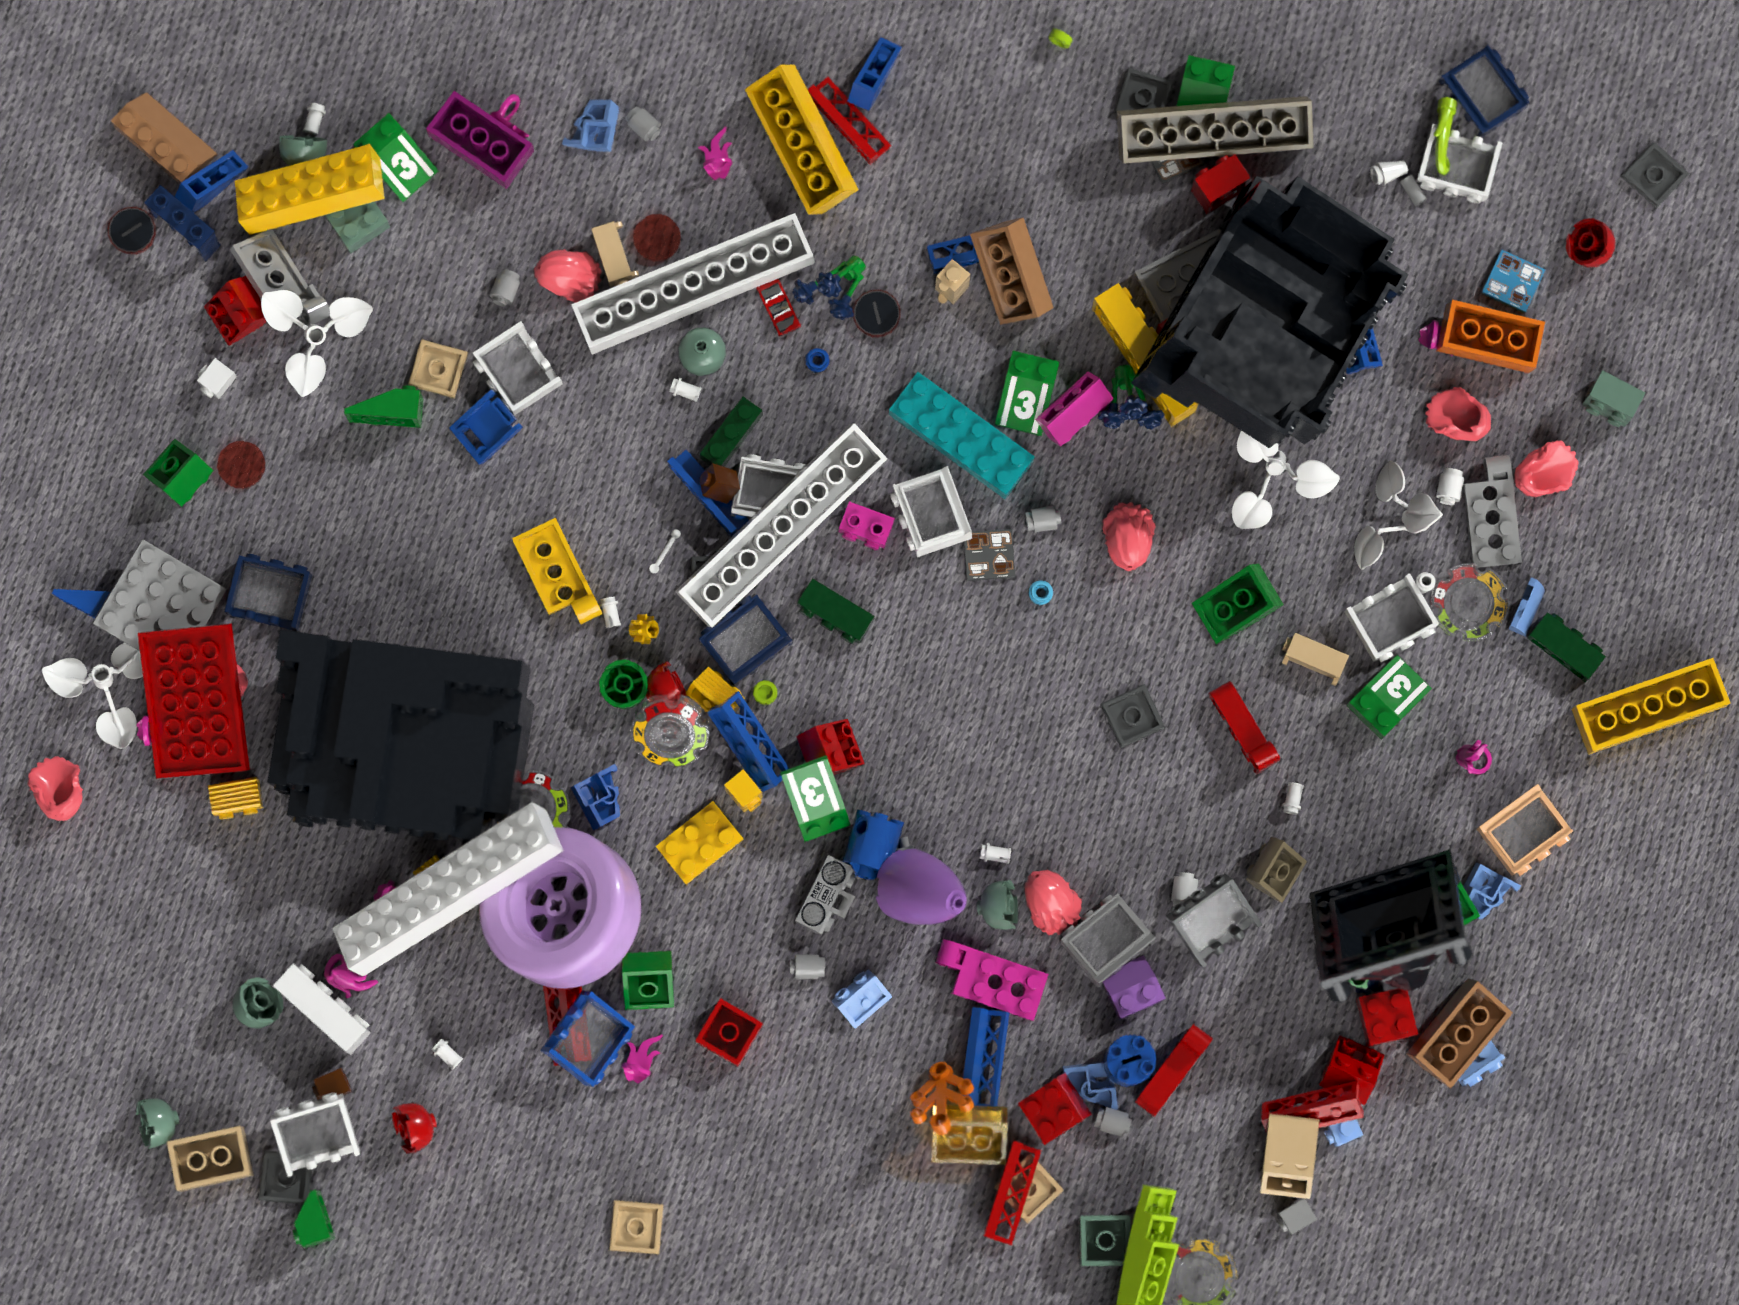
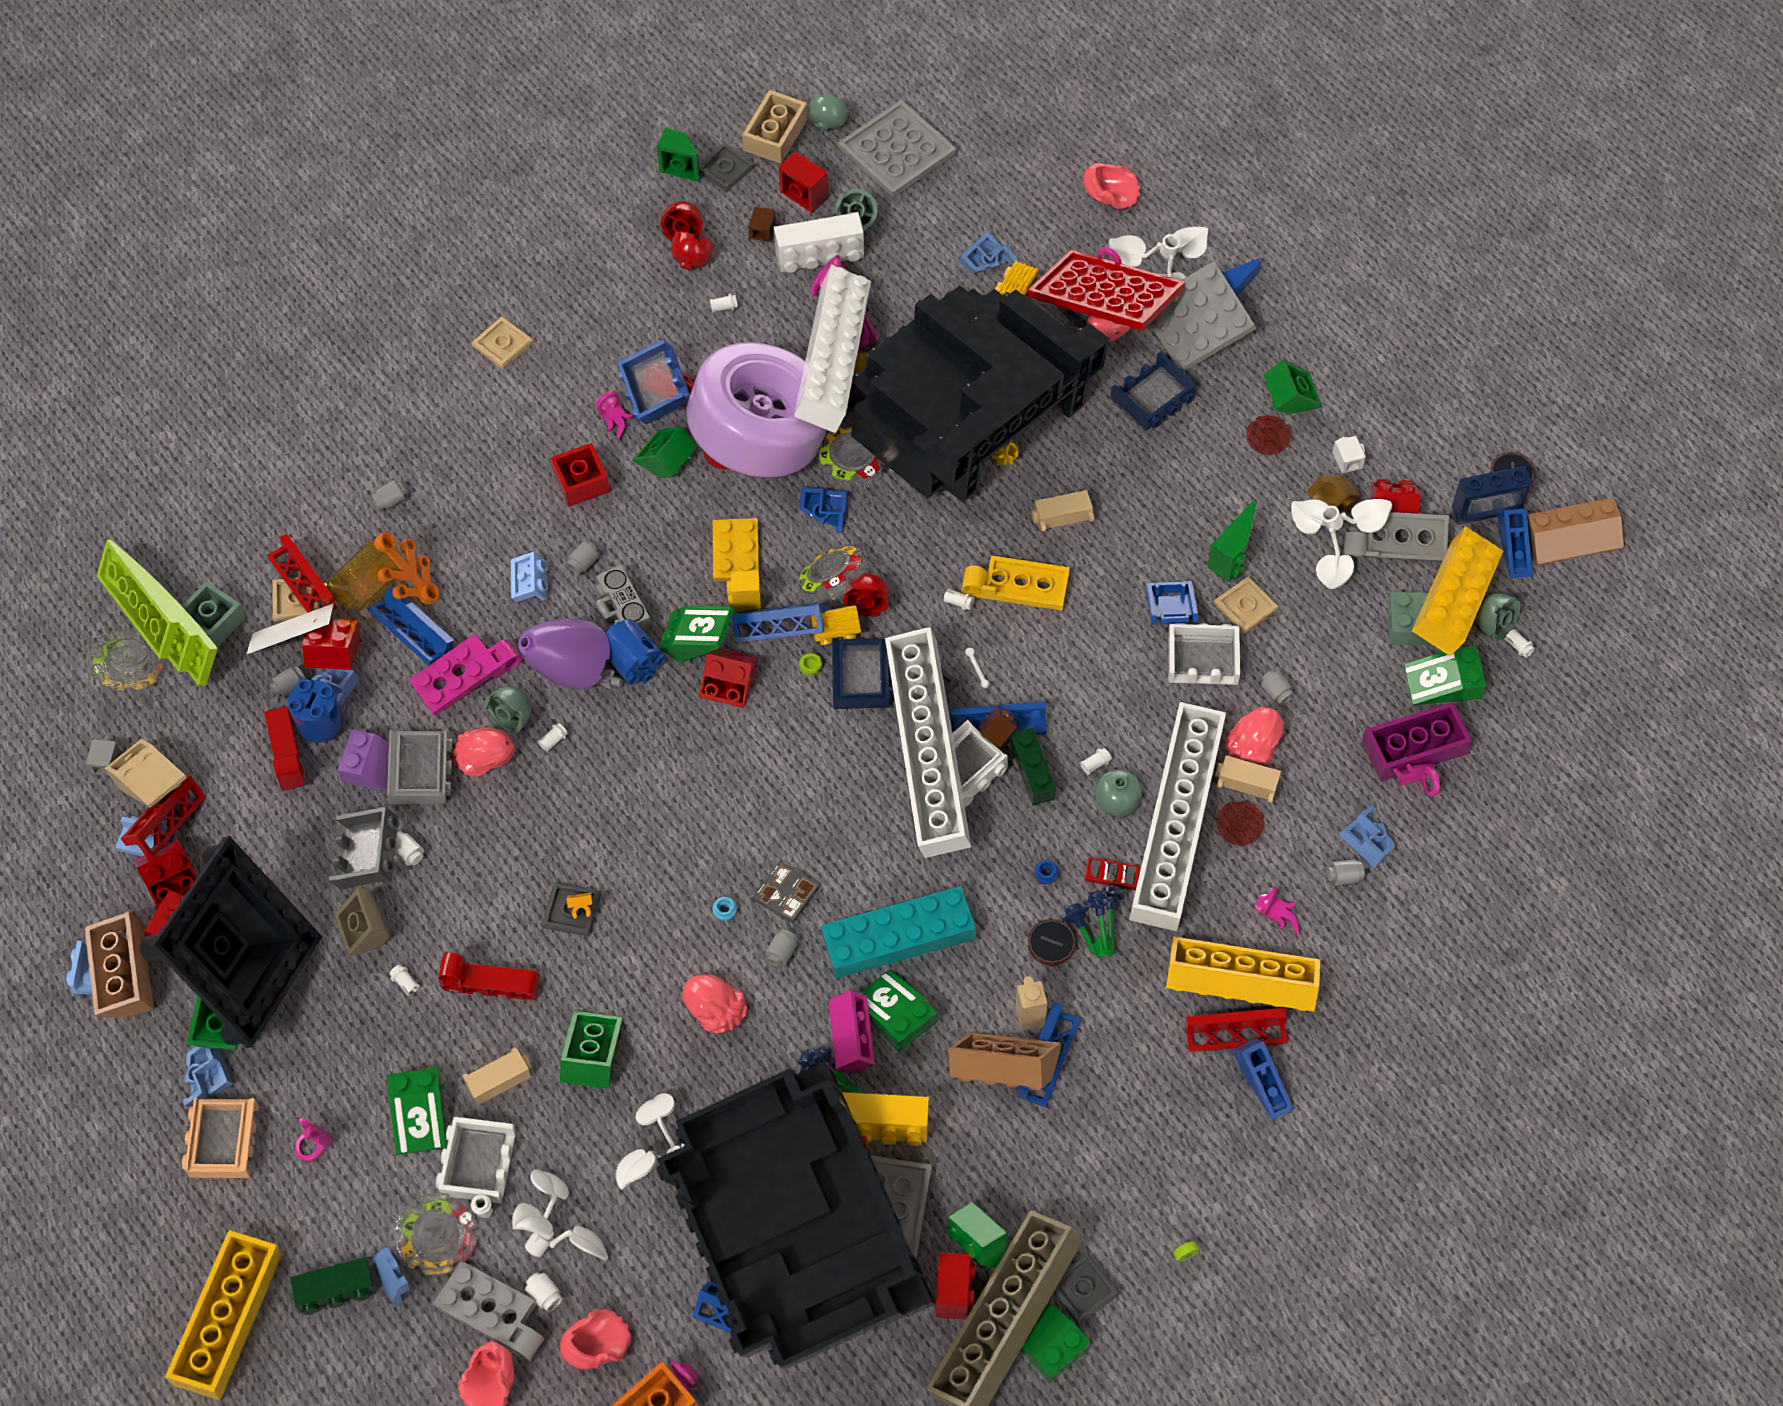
camera: 130 degrees right, 20 degrees down
(149, 1027) = (897, 148): none -> light grey plate
(226, 855) = (979, 259): none -> medium blue slope
(260, 1076) = (803, 182): none -> red brick
(270, 360) = (1334, 491): none -> pearl gold arch
(314, 1133) = (738, 187): window -> none
(381, 1157) = (680, 217): none -> red cylinder
(456, 585) = (1062, 510): none -> tan brick
(615, 676) = (894, 564): green cylinder -> none
(643, 629) = (926, 610): yellow gear -> none
(835, 612) = (831, 748): dark green brick -> none
(866, 526) = (881, 815): dark pink brick -> none
(871, 1191) = (389, 495): none -> light grey brick
(931, 512) = (854, 865): window -> none
(1068, 1155) = (290, 628): none -> white sticker
(1126, 706) = (580, 901): none -> light orange tile
(1174, 187) = (978, 1235): none -> green slope

